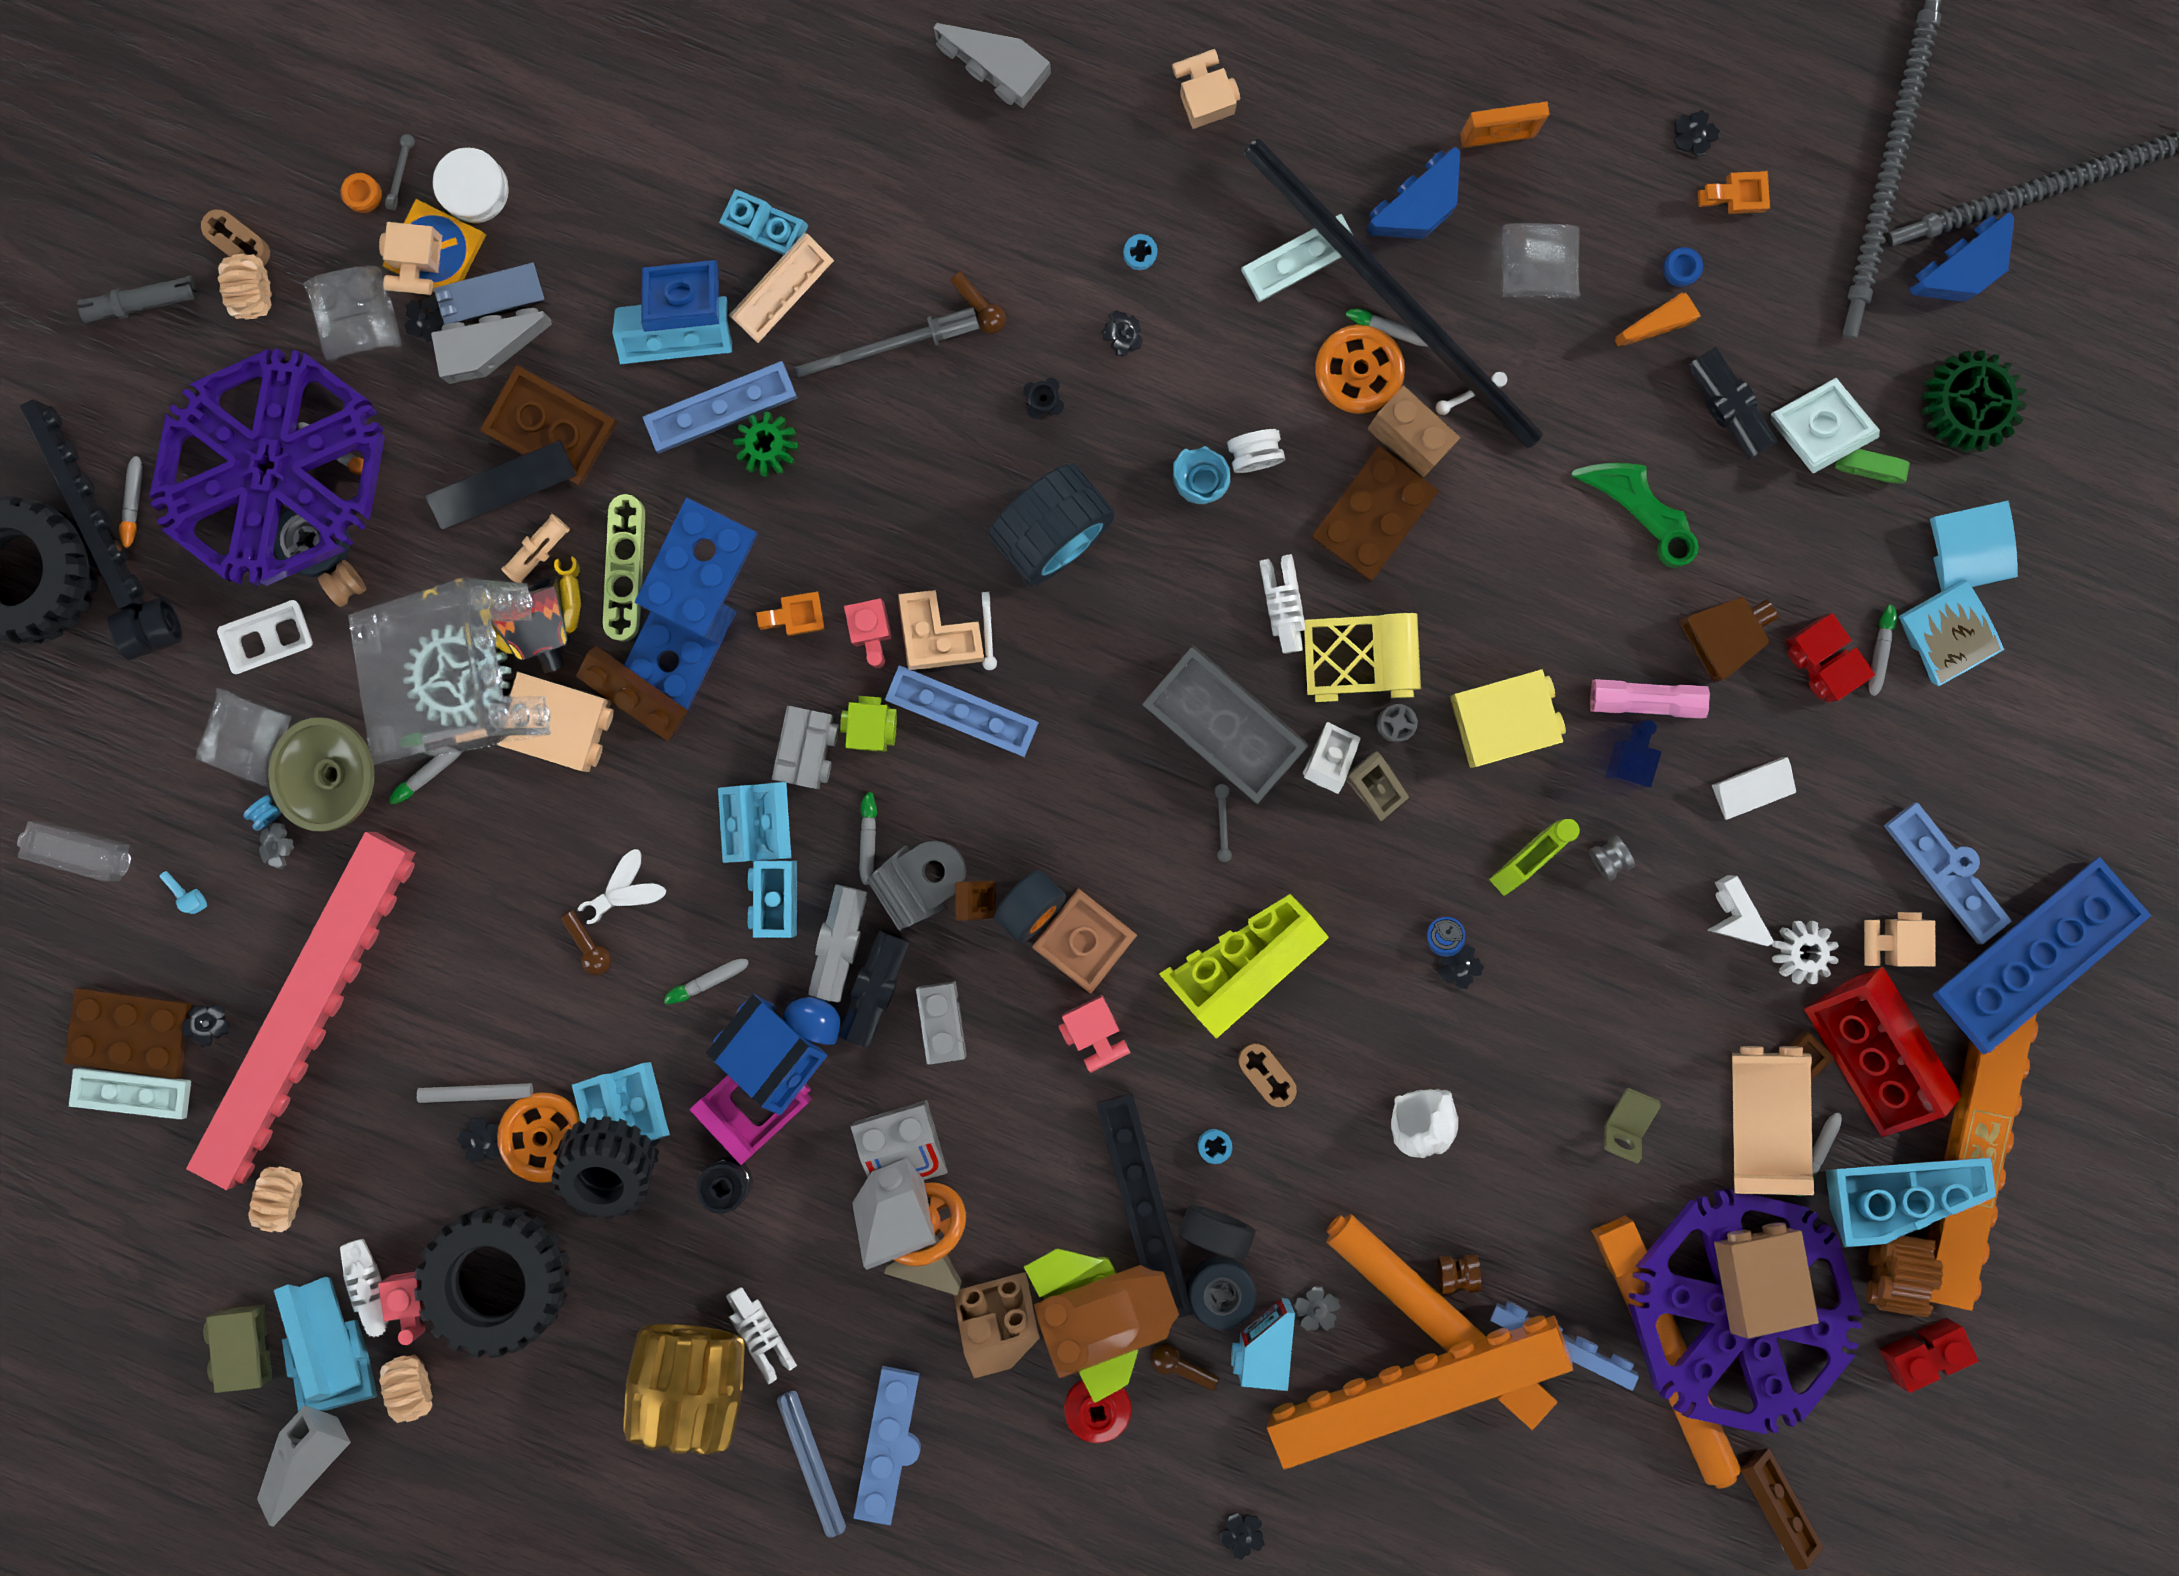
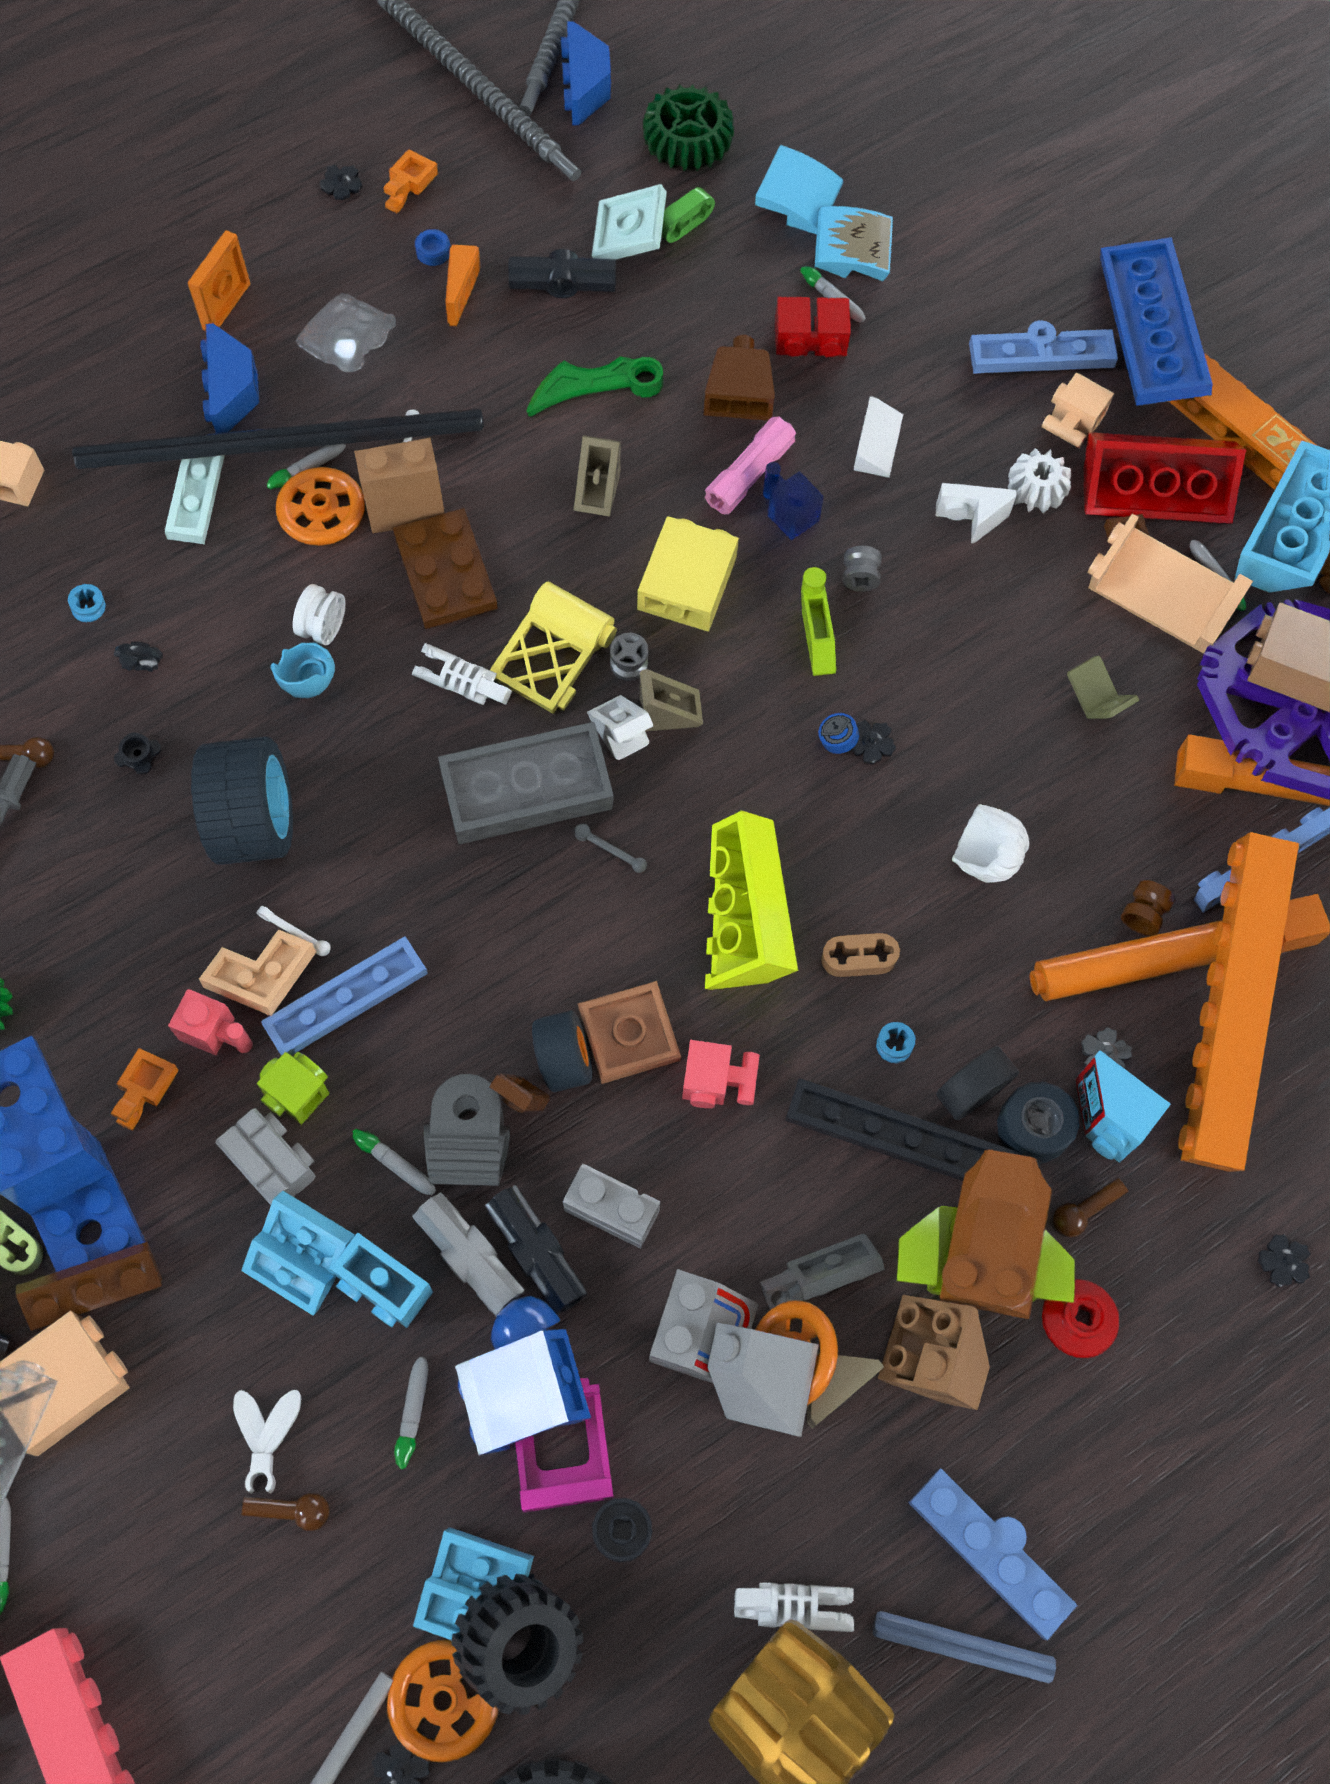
camera: 60 degrees left, 20 degrees down
(1000, 1206) = (823, 1271): none -> dark grey hinge
(1543, 581) = (597, 475): none -> dark tan slope

